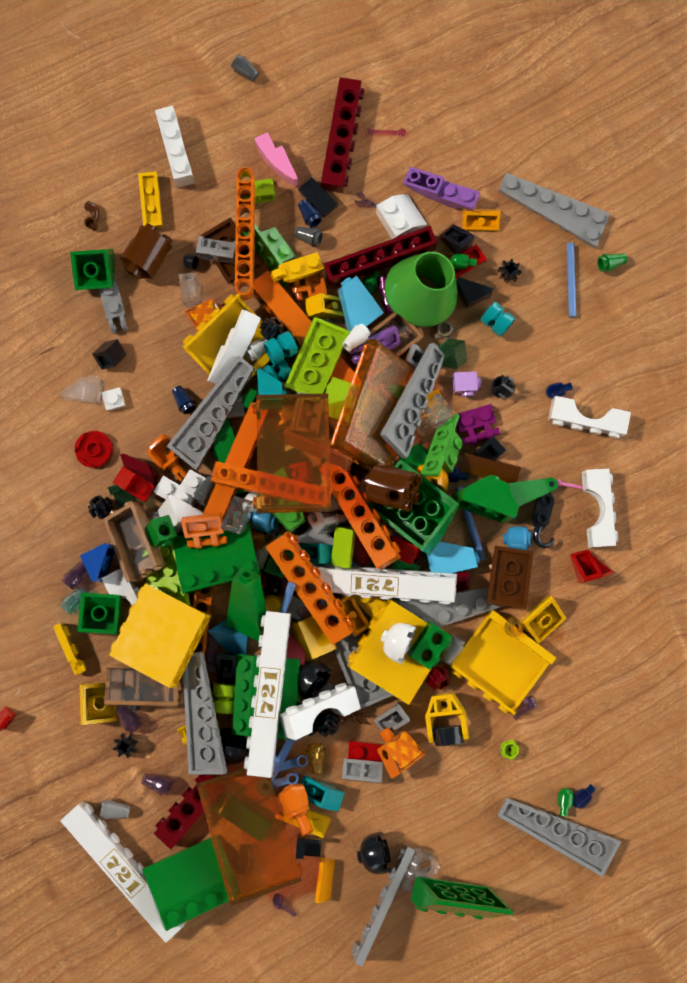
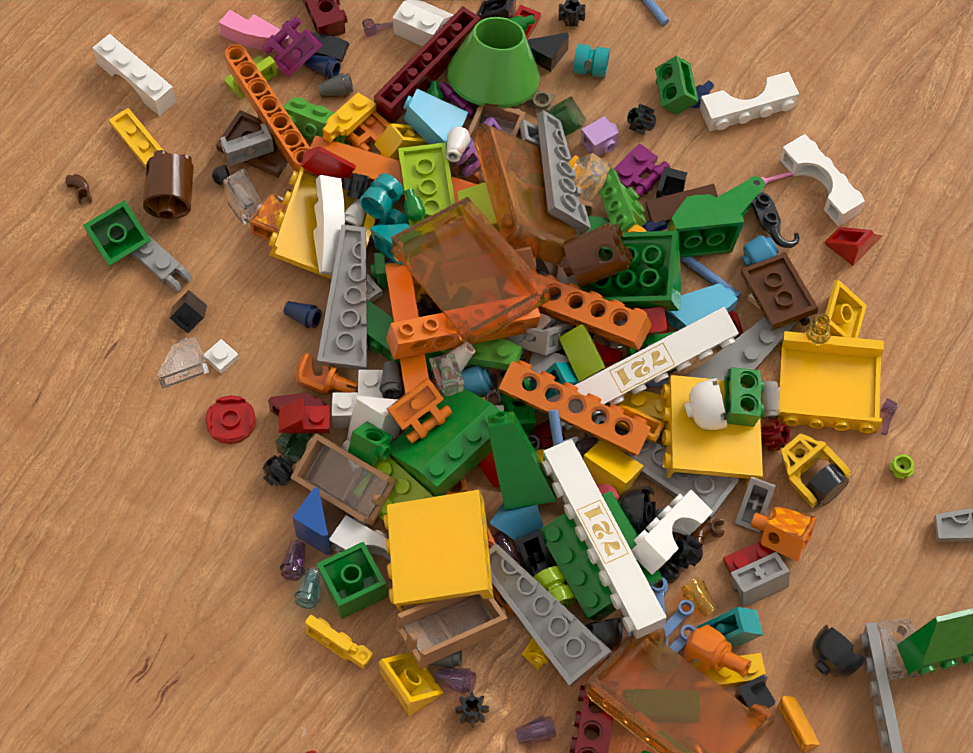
camera: 35 degrees left, 20 degrees down
(255, 303) = (326, 163): none -> red slope
(293, 194) = (297, 52): none -> magenta plate
(295, 371) = (414, 206): none -> green cylinder
(544, 374) = (676, 85): none -> green brick

